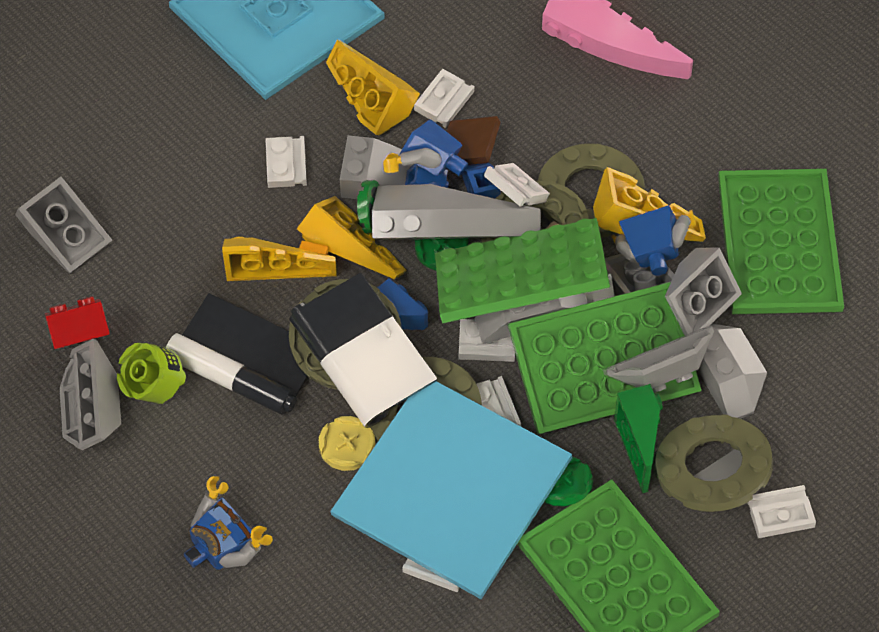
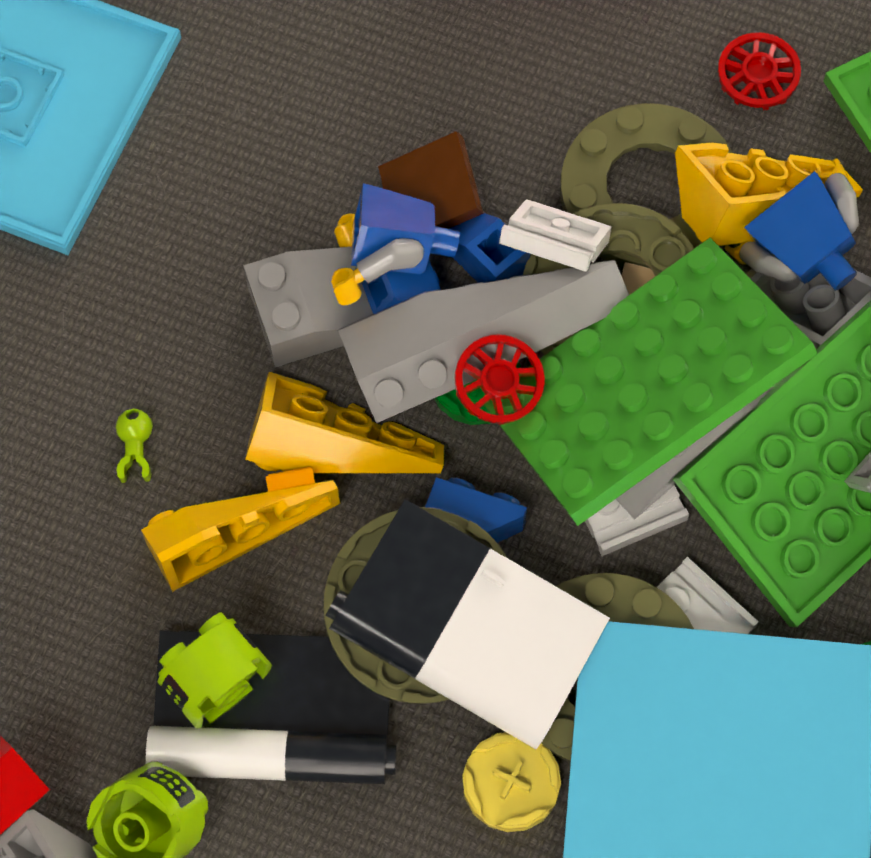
camera: 25 degrees left, 10 degrees up
(221, 316) = (212, 670): none -> lime brick
(249, 196) = (134, 434): none -> lime arm
(285, 162) = (158, 347): white plate -> none
(365, 204) = (341, 372): green tile -> none
(374, 91) = (237, 168): yellow wedge -> none
(444, 98) = (349, 133): white plate -> none
(444, 238) = (499, 379): none -> red wheel
(685, 157) = (759, 70): none -> red wheel

